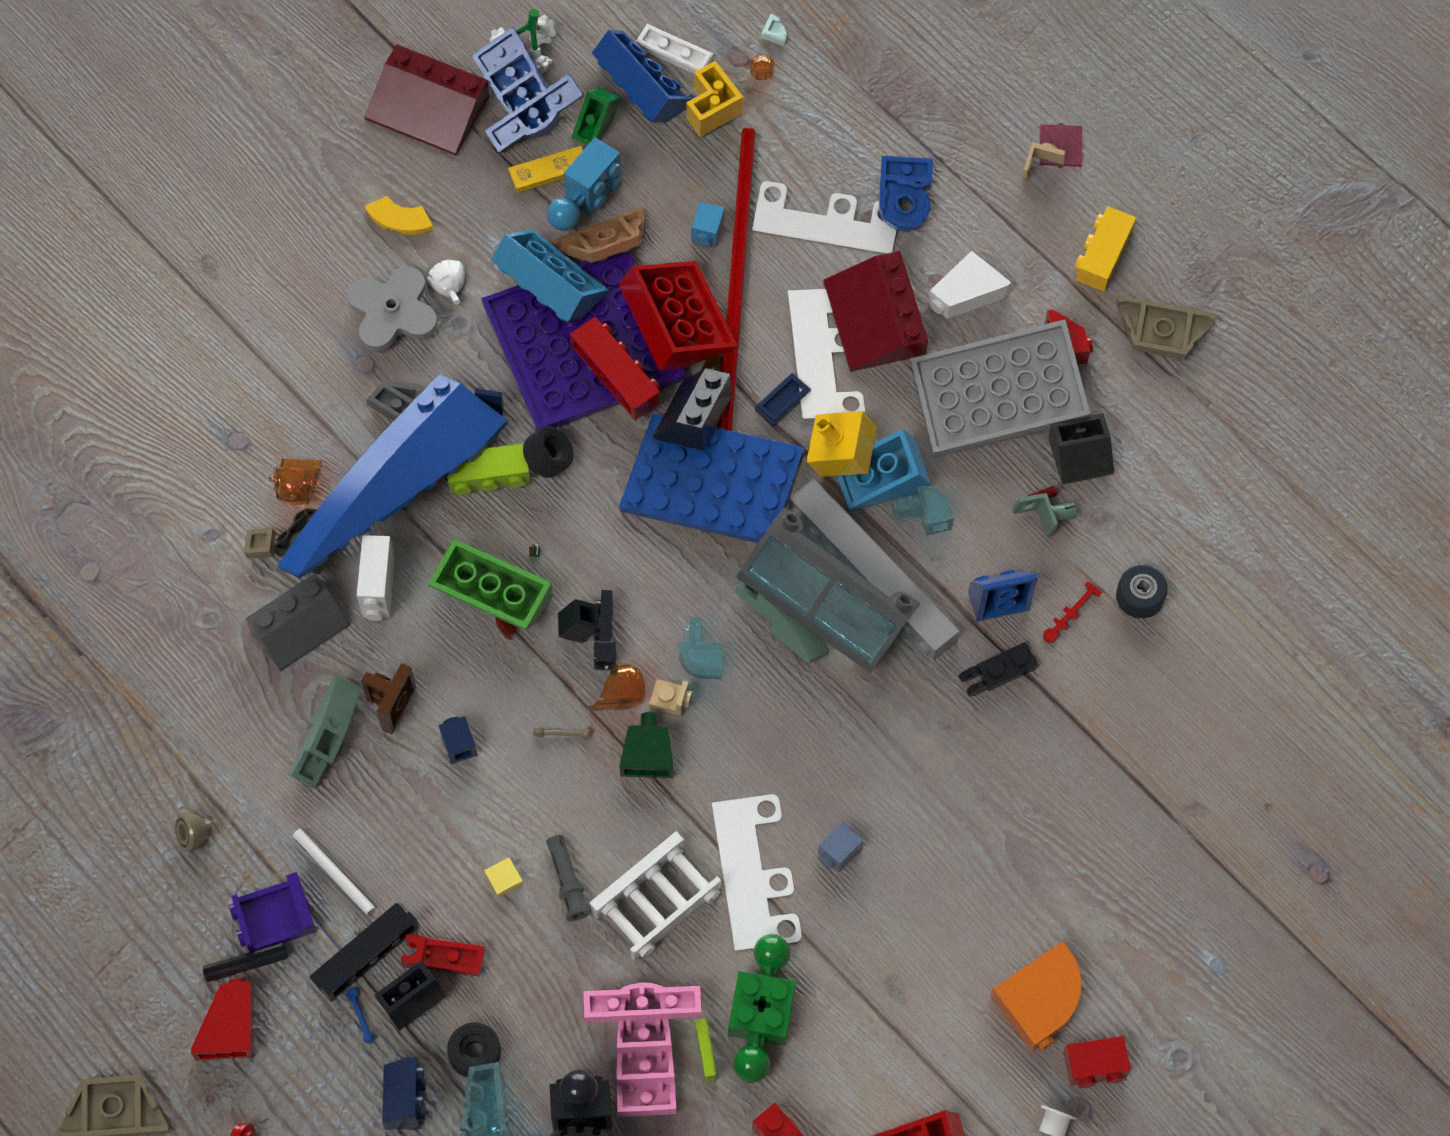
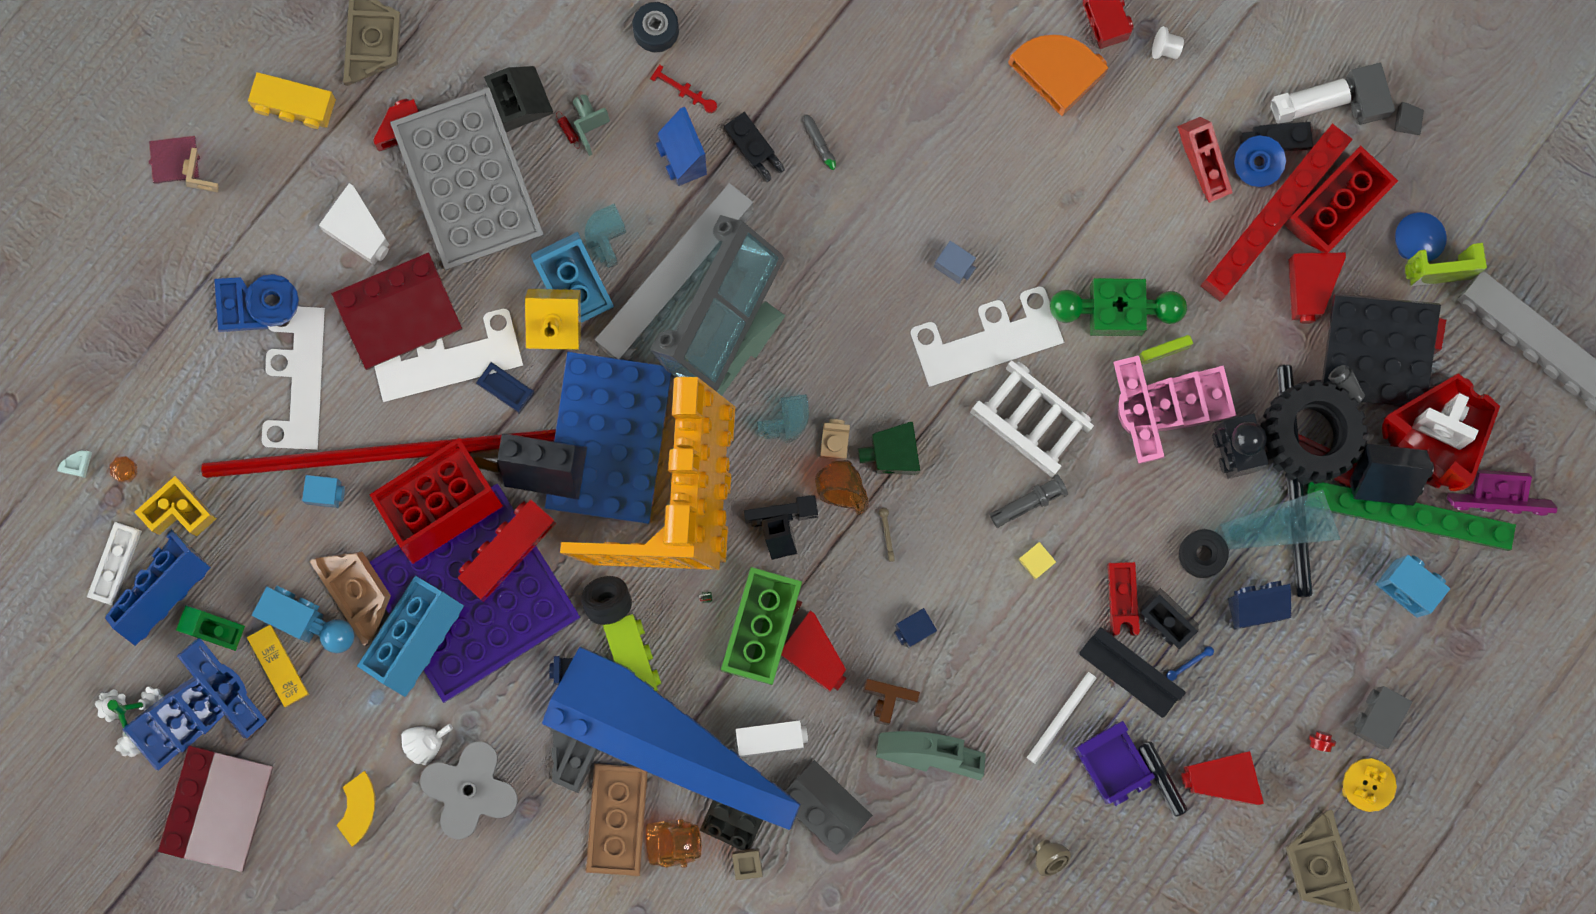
camera: 105 degrees left, 15 degrees up
(327, 433) = (616, 820): none -> medium nougat tile
(453, 638) = (814, 654): none -> red slope
(641, 526) = (700, 483): none -> light orange bracket
(994, 736) = (819, 141): none -> dark grey piece

